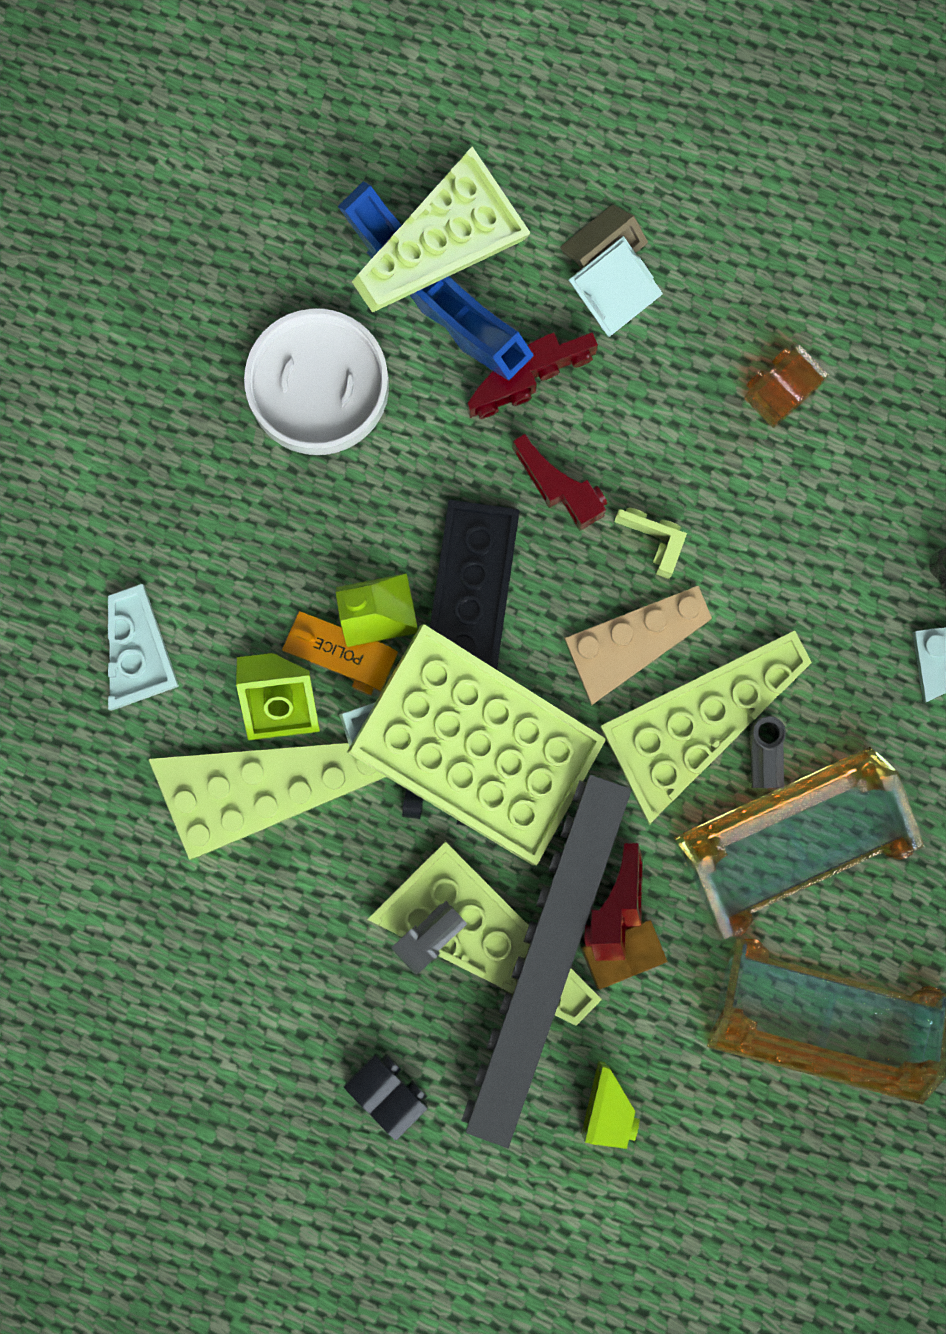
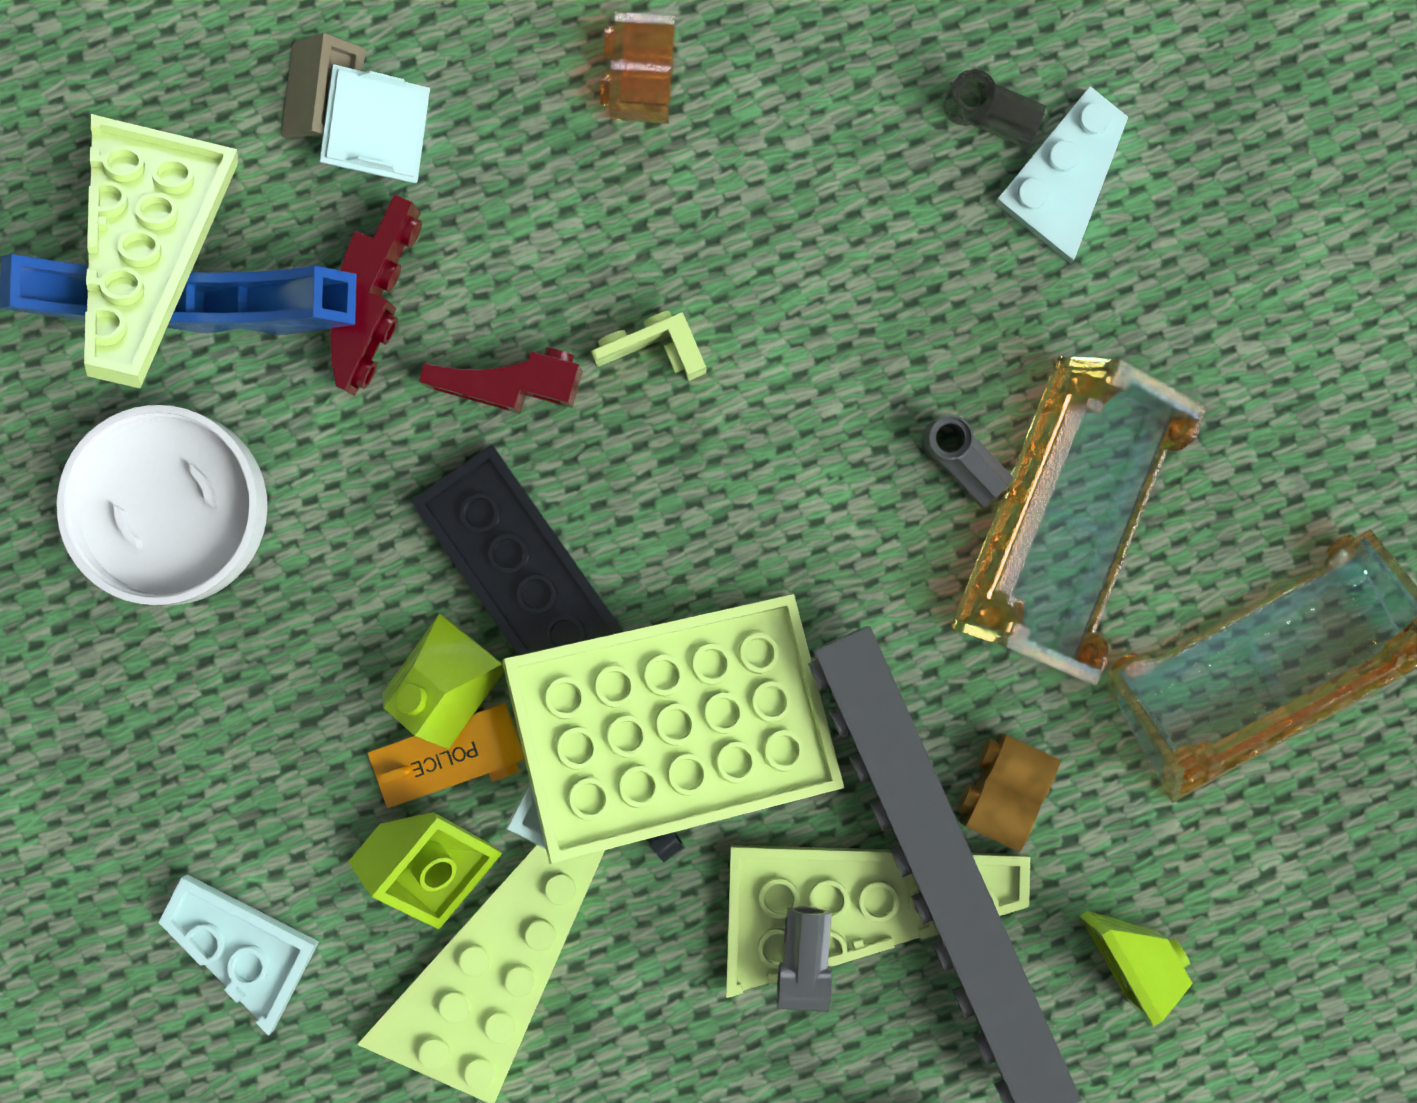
camera: 40 degrees left, 5 degrees up
(620, 910) = (976, 788): dark red slope -> none
(627, 644) = (726, 478): tan wing -> none
(686, 729) = (864, 509): yellowish green wing -> none

